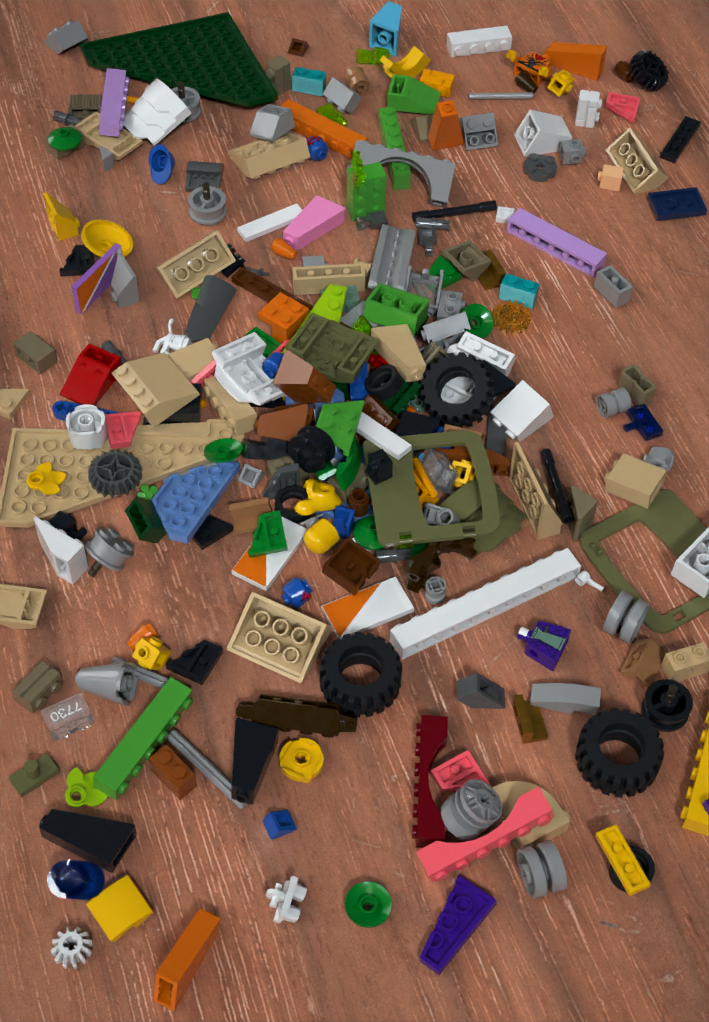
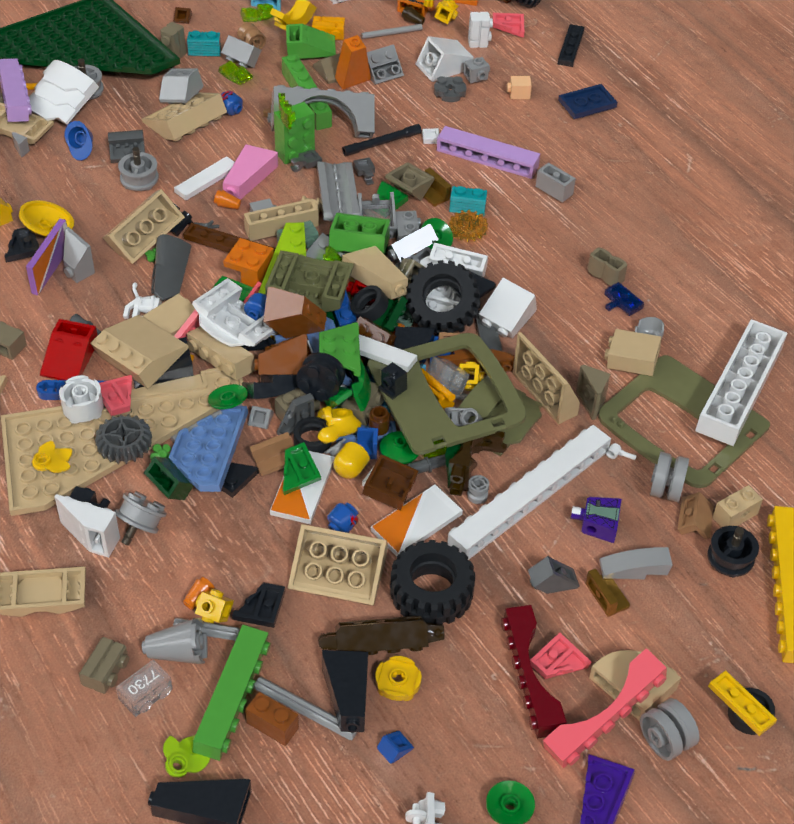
camera: 15 degrees left, 5 degrees down
(33, 775) = (125, 754): olive tile -> none
(313, 124) = (249, 89): orange brick -> none
(432, 223) = (365, 153): dark grey axle -> none
(471, 810) = (584, 687): light grey wheel -> none
(563, 506) = (548, 352): black piece -> none
(613, 403) = (590, 286): light grey wheel -> none
(626, 728) = (702, 626): black tyre -> none
(640, 166) = (545, 75): tan slope -> none

